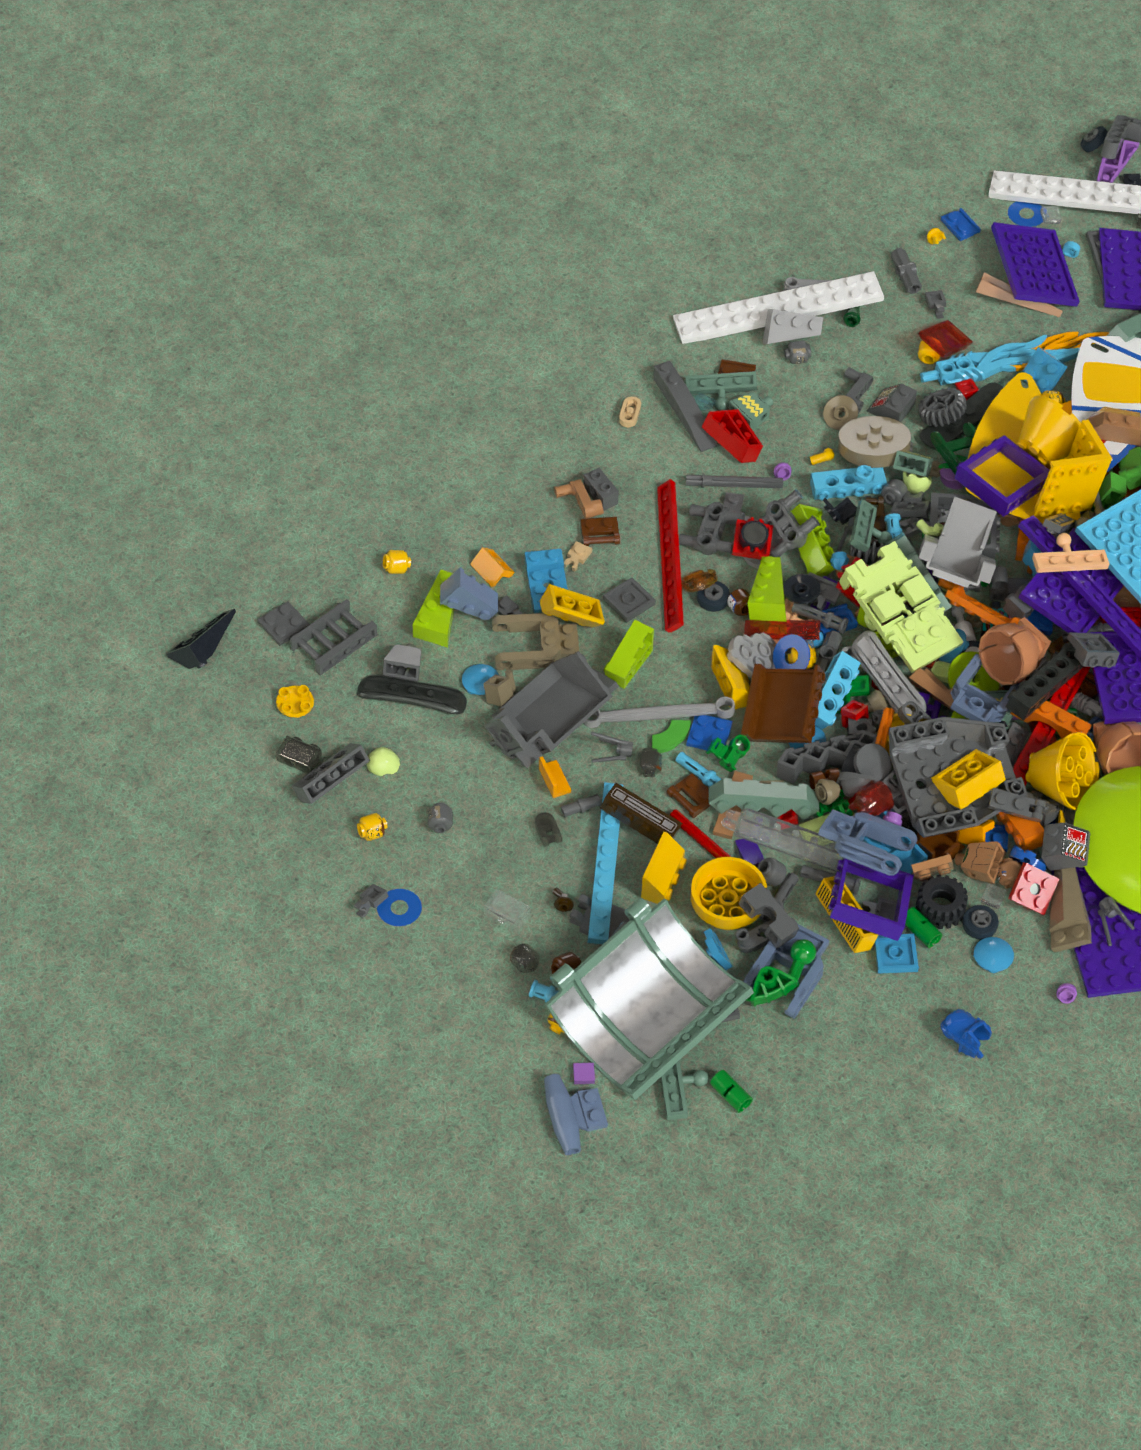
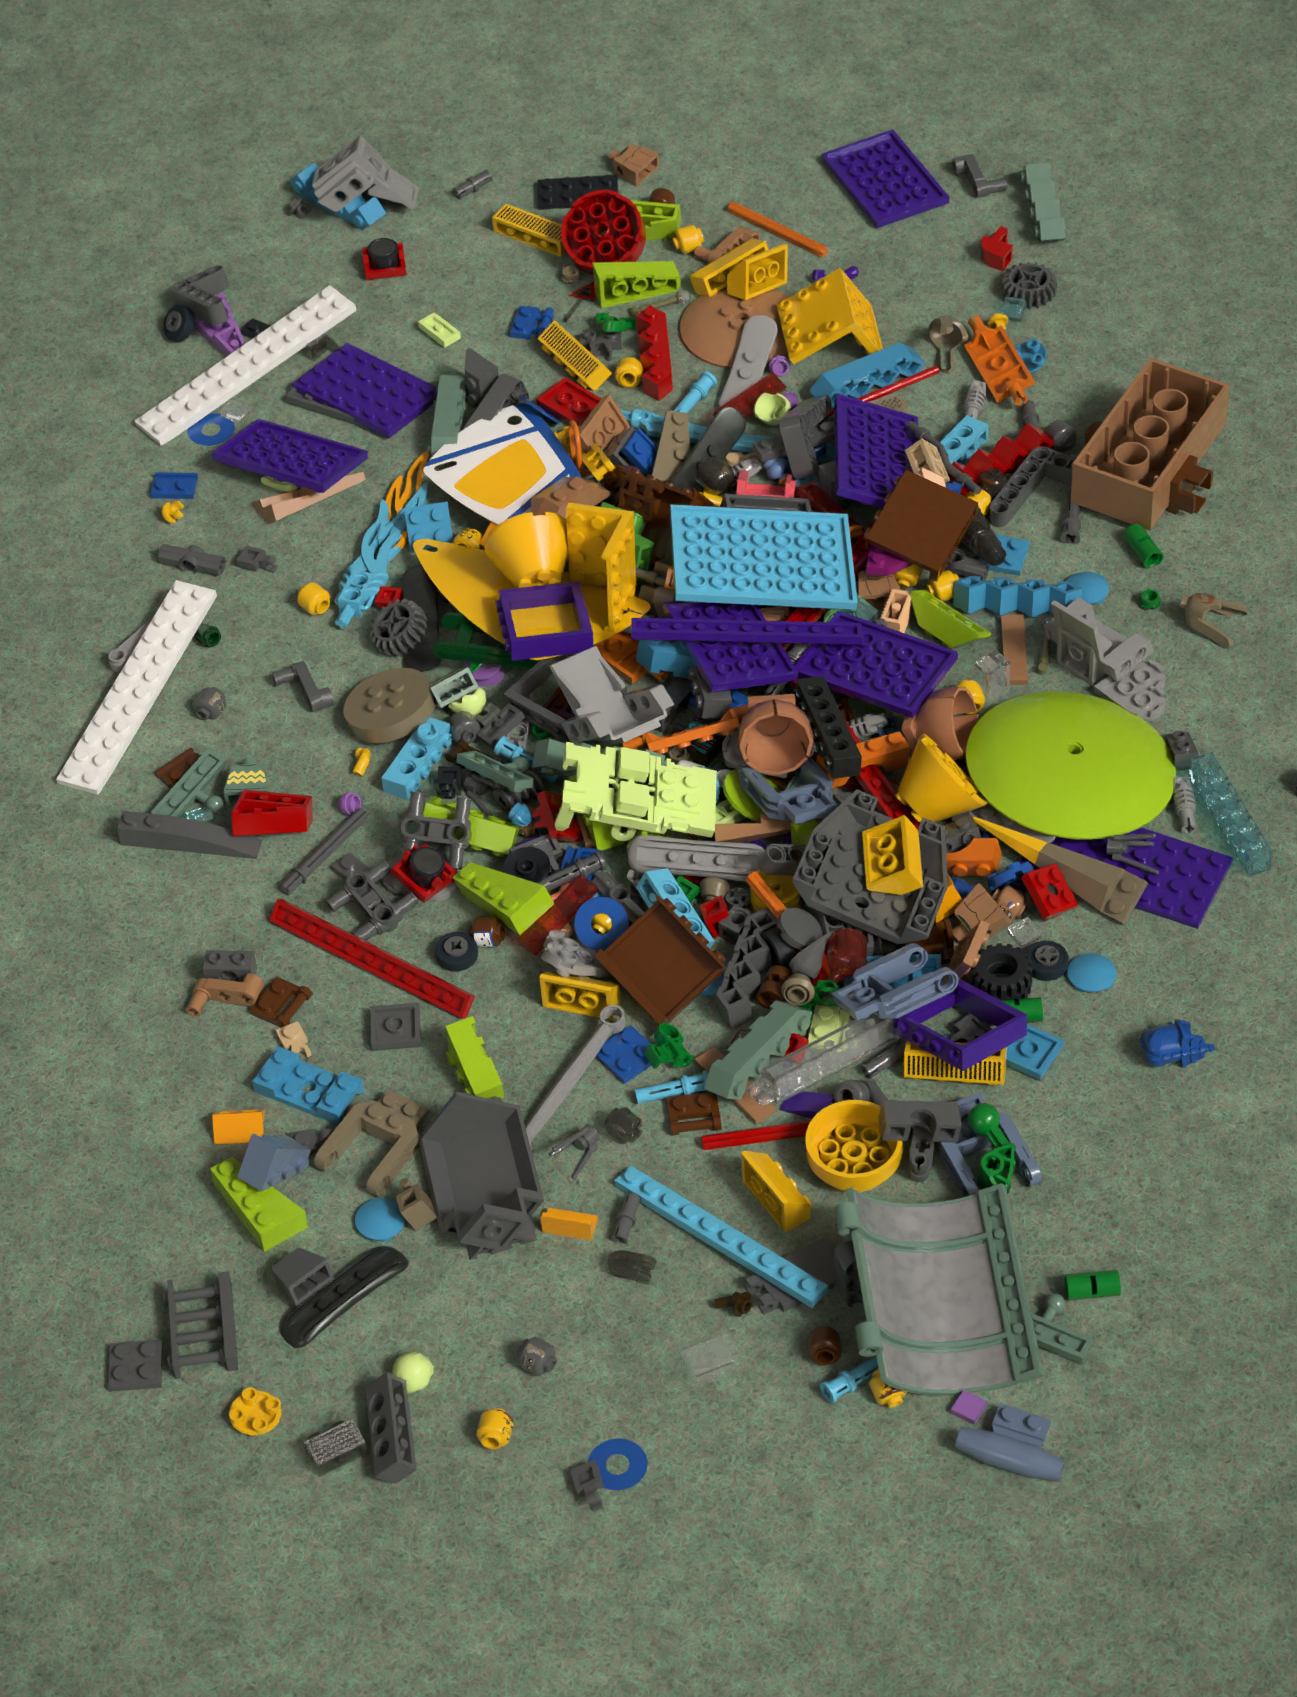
camera: 50 degrees left, 5 degrees down
(203, 642) = (94, 1459): black wedge -> none
(396, 562) = (153, 1208): yellow head -> none
(525, 958) = (784, 1378): clear smoke head -> none
(572, 606) = (372, 1075): yellow slope -> none
(629, 412) = (150, 887): tan plate -> none
(639, 814) = (690, 1168): dark brown brick -> none
(672, 736) = (604, 1089): bright green tile -> none
(699, 580) = (430, 949): clear orange tile -> none
(716, 950) = (911, 1195): dark azure plate -> none
(789, 326) = (174, 690): light grey wedge -> none
(836, 406) = (318, 702): dark tan dish -> none
(893, 818) = (878, 952): medium lavender plate -> none
(894, 402) = (349, 664): dark grey slope -> none
(928, 530) = (553, 720): yellowish green arm -> none
(945, 338) = (313, 576): clear red piece -> none
(1016, 805) = (952, 840): dark grey plate -> none
(1059, 523) = (652, 608): dark grey plate -> none
(1065, 846) = (1028, 833): slope -> none
(1066, 993) = (1183, 940): medium lavender plate -> none
(1069, 559) = (713, 621): light nougat plate -> none
(1071, 249) = (295, 420): medium azure tile -> none
(1093, 649) = (828, 669): dark grey plate -> none

